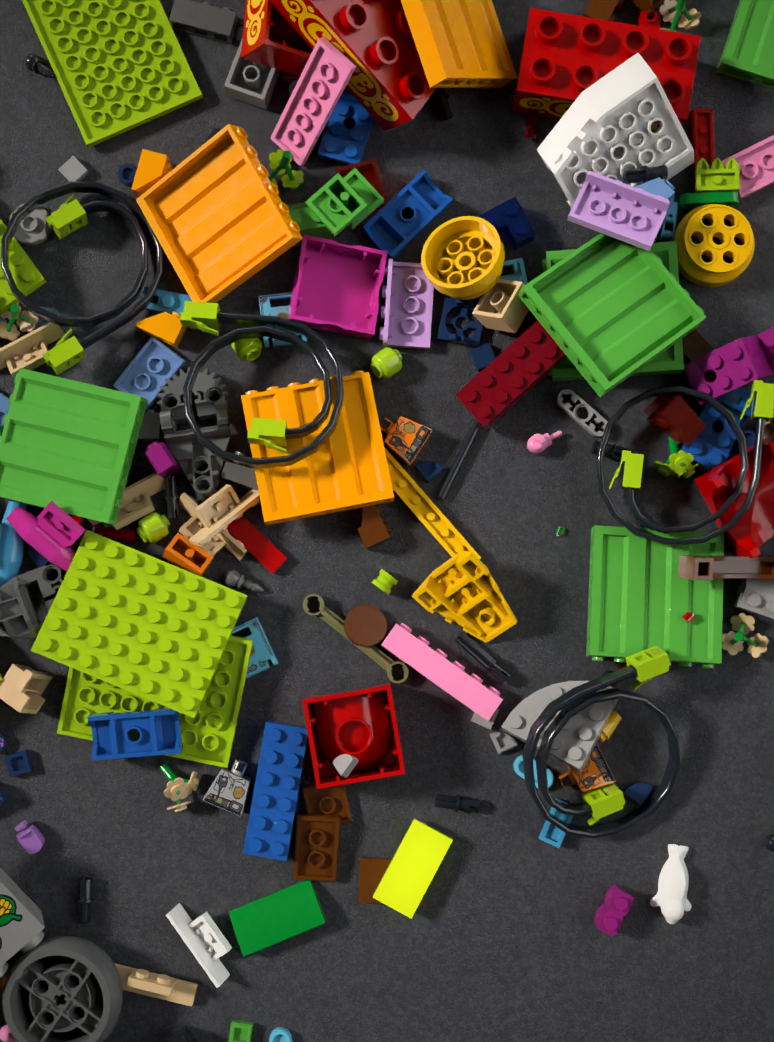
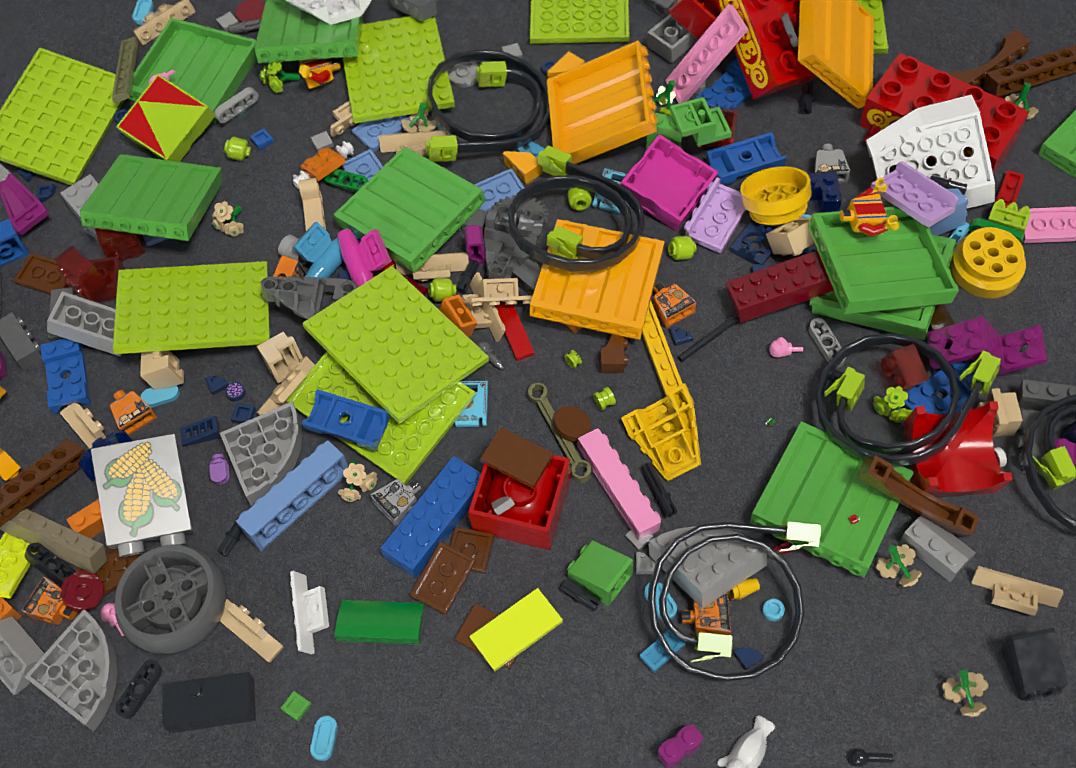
camera: 30 degrees right, 25 degrees down
(51, 718) = (287, 387): none -> tan bracket
(66, 800) = (264, 449): none -> light grey brick
(124, 837) = (293, 495): none -> medium blue brick
(331, 549) = (572, 359): none -> lime bush
(337, 710) = (517, 457): none -> reddish brown tile
(404, 45) = (790, 29): none -> dark grey tile
(466, 775) = (601, 571): none -> bright green slope
(502, 183) = (832, 160): none -> light grey torso
(581, 263) = (868, 212): none -> torso
(642, 733) = (773, 610): none -> medium azure tile

